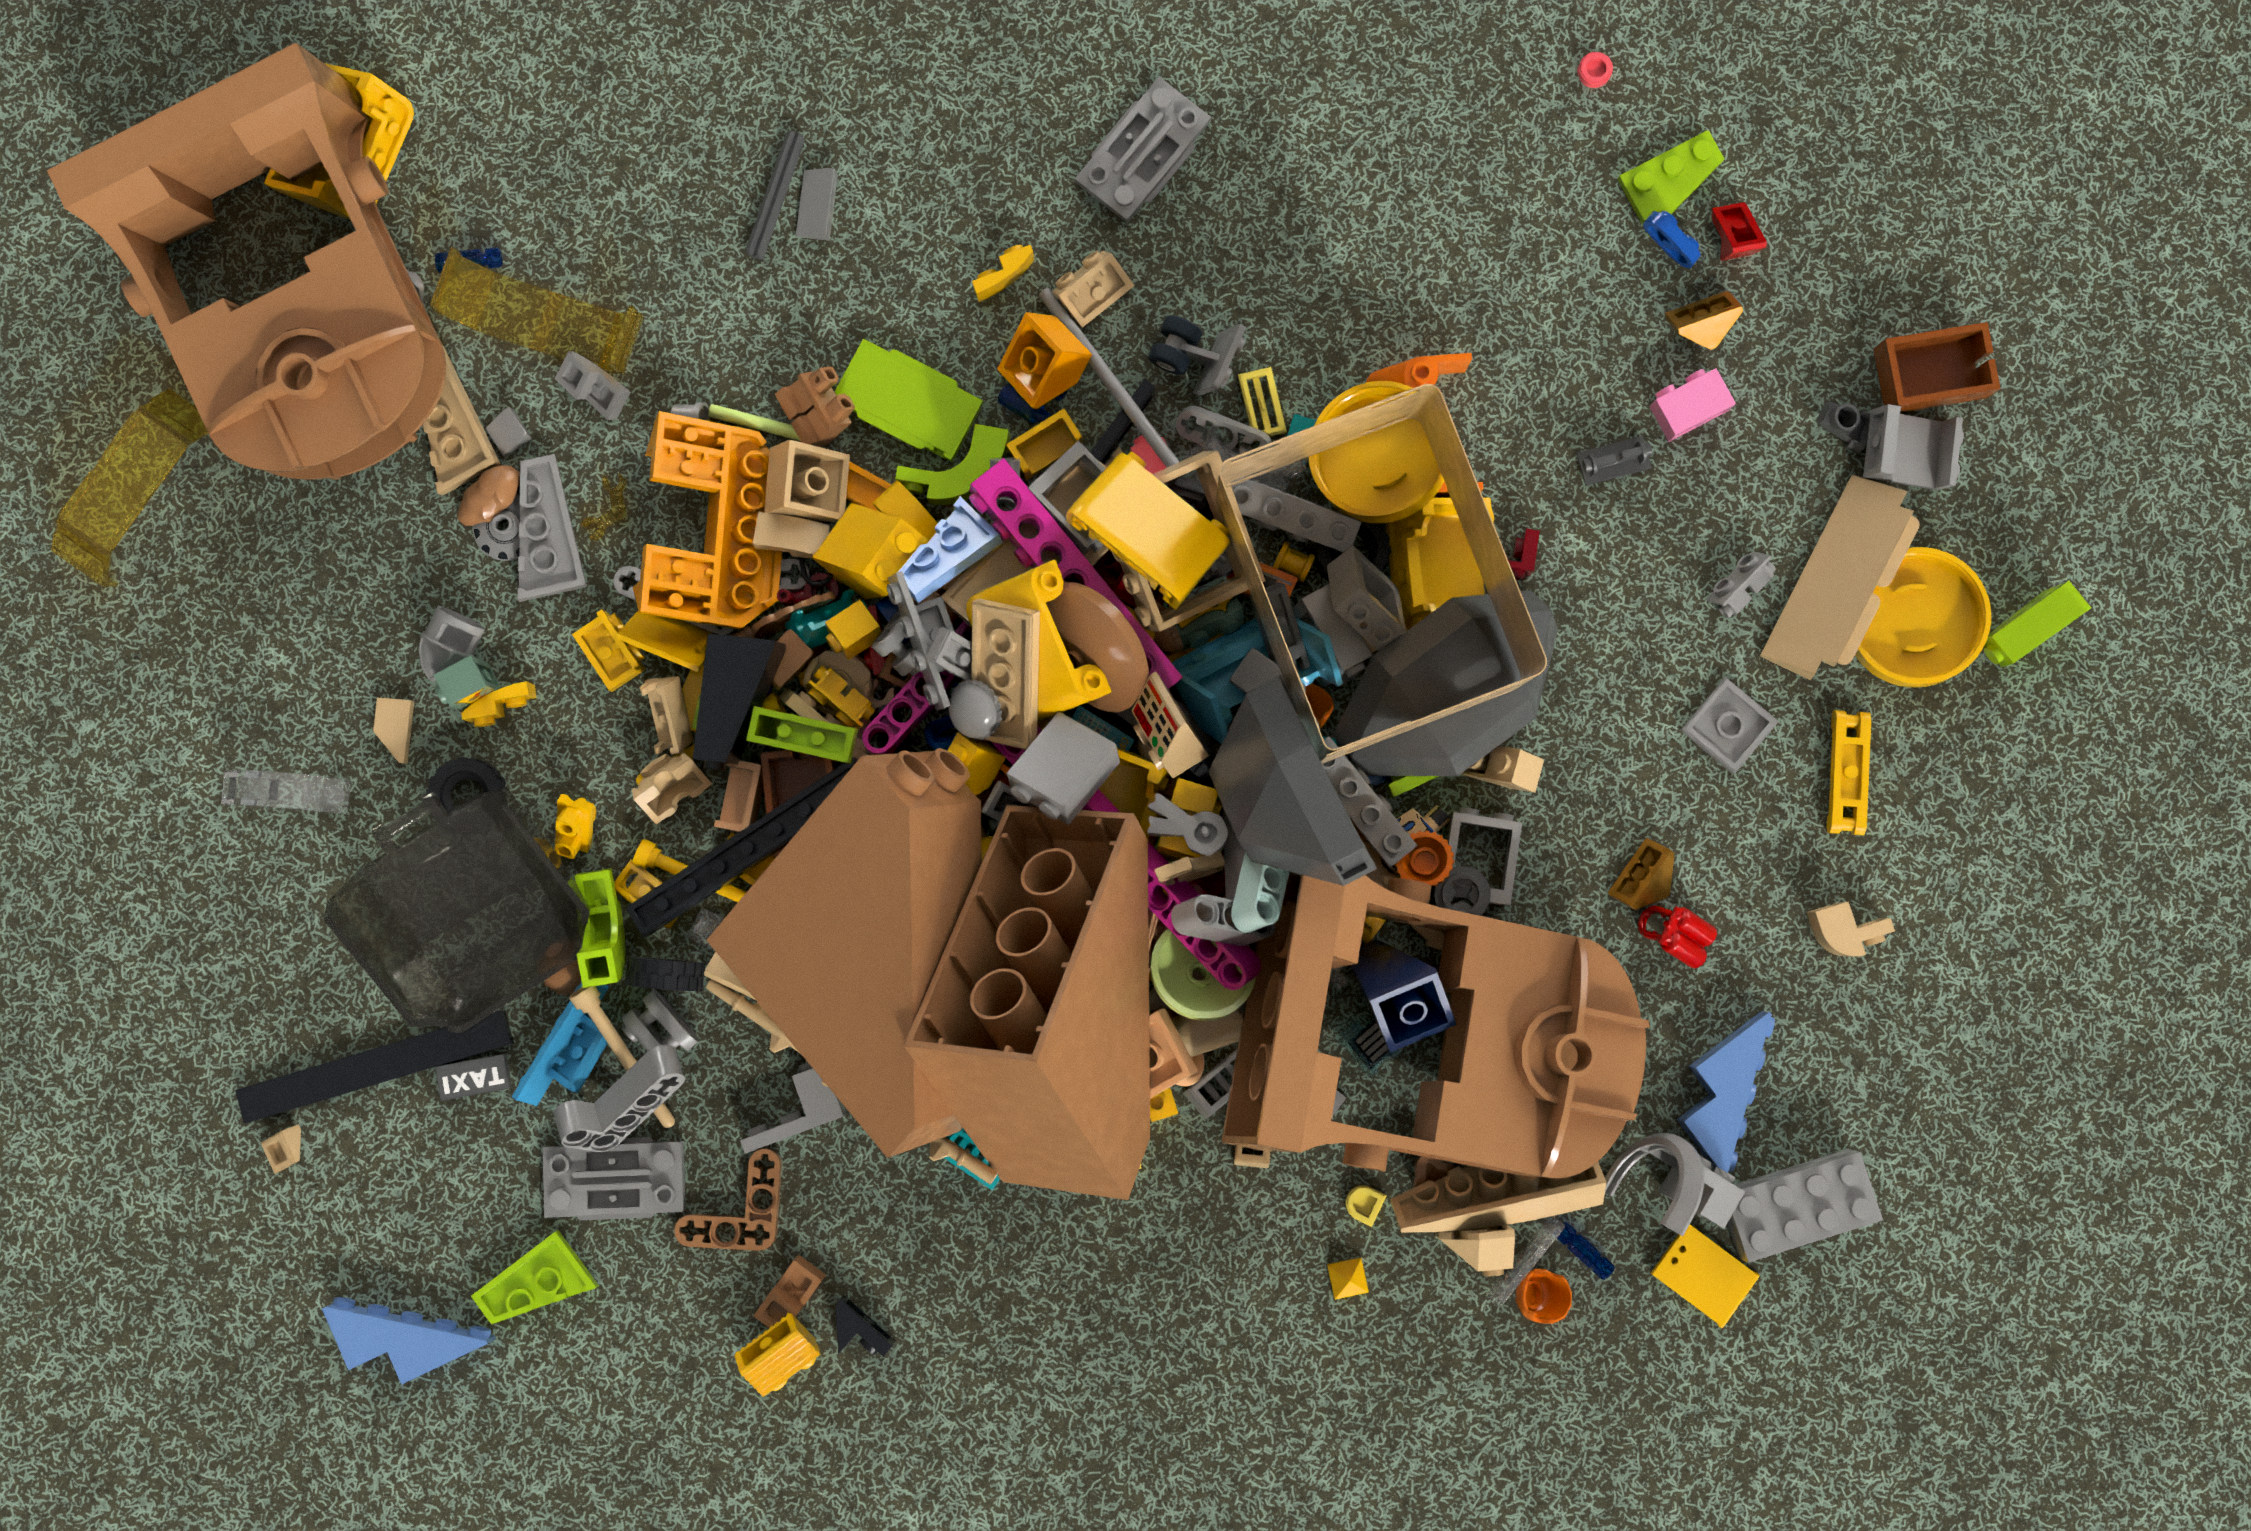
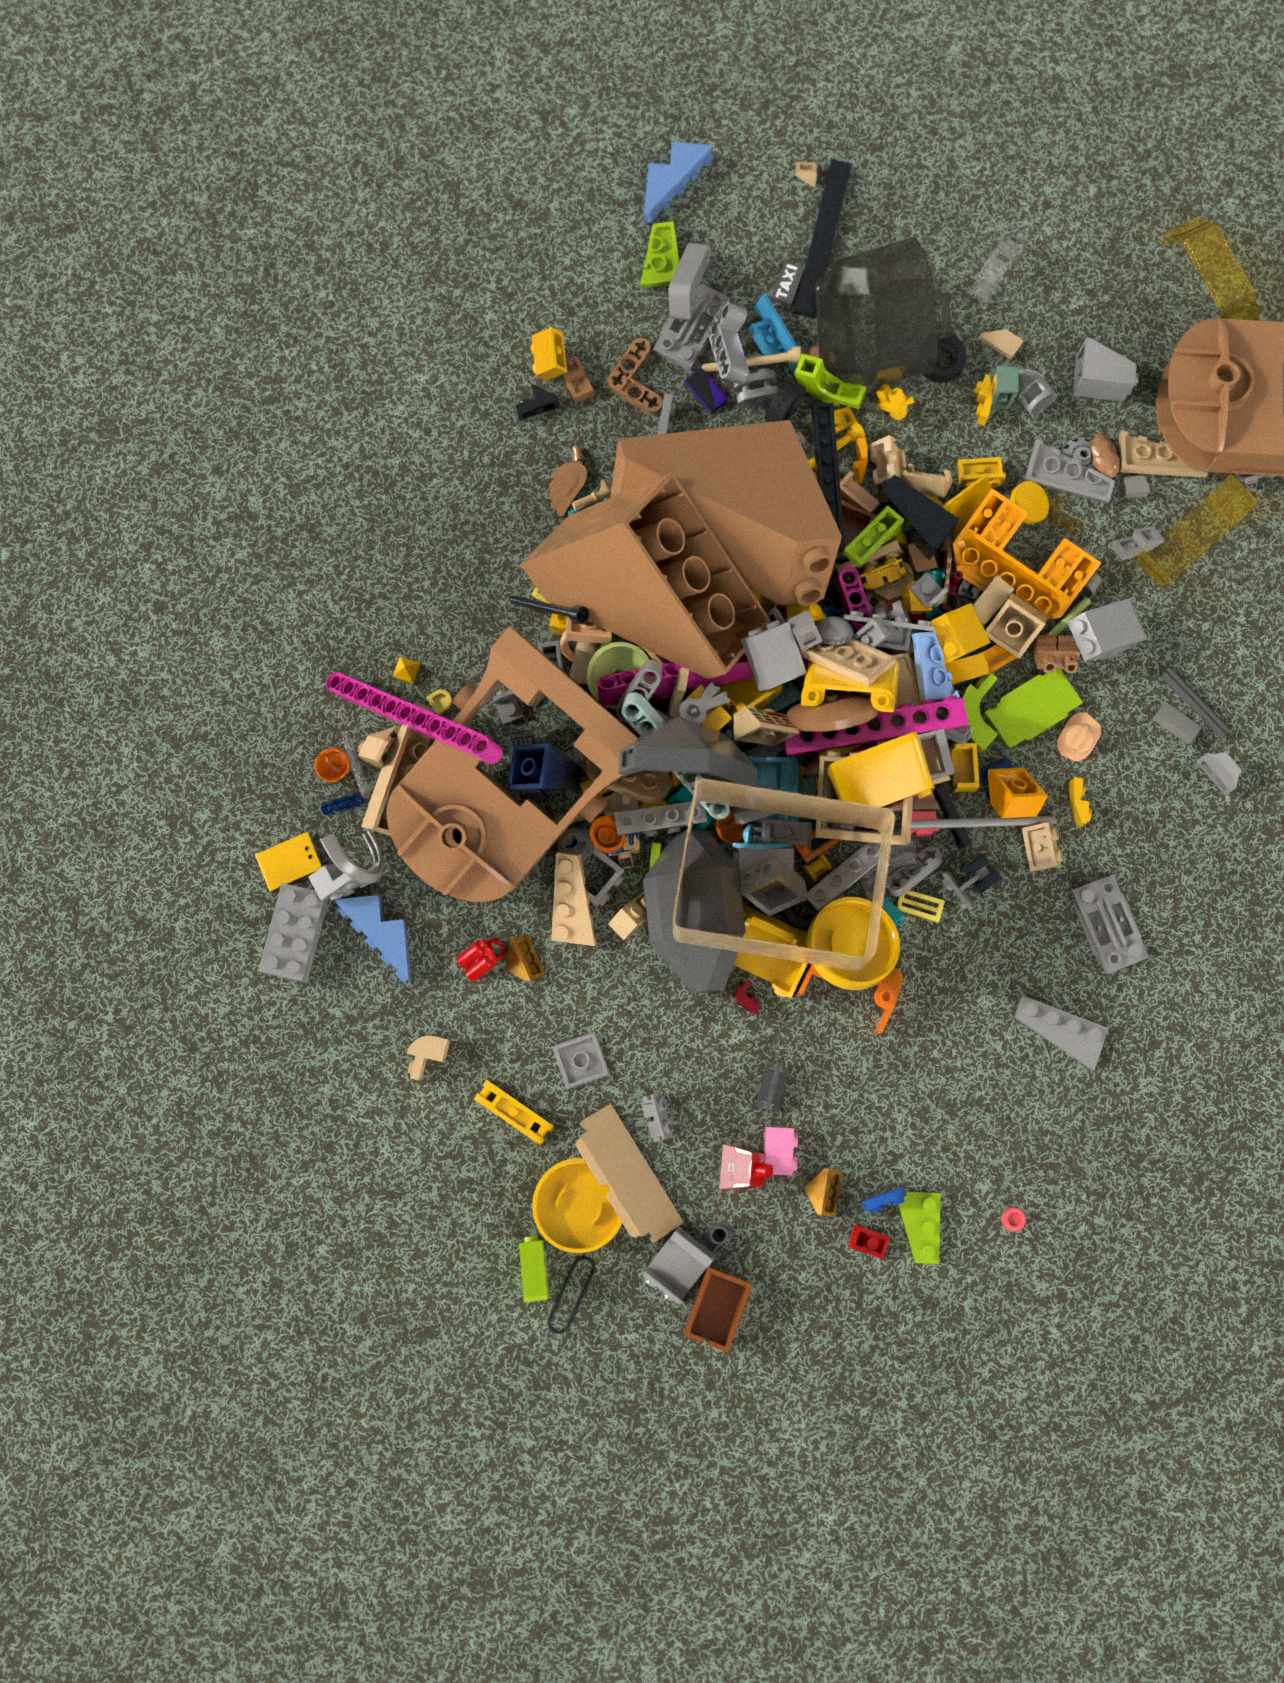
camera: 115 degrees right, 5 degrees down
(369, 560) = (1103, 373): none -> light grey slope
(491, 257) = (1243, 527): clear blue axle -> none
(553, 1220) = (687, 279): none -> light grey beam
(615, 559) = (1032, 499): none -> yellow tile
(698, 819) = (859, 466): none -> light orange slope
(701, 1100) = (706, 390): none -> tile
(749, 355) = (1107, 630): none -> light grey slope
(840, 615) = (928, 591): none -> light grey bracket
(854, 110) = (1221, 770): none -> light grey slope
(910, 321) = (1078, 736): none -> light nougat piece
(949, 1215) = (568, 482): none -> medium nougat animal
(1001, 746) = (805, 630): none -> light grey brick
(1154, 1077) = (577, 614): none -> black piece
(1316, 131) = (1071, 1033): none -> light grey wing
(1439, 1209) = (415, 718): none -> dark pink beam
(1538, 857) = (571, 903): none -> tan wing
(1743, 435) = (743, 1168): none -> torso
(2031, 549) = (579, 1300): none -> black piece

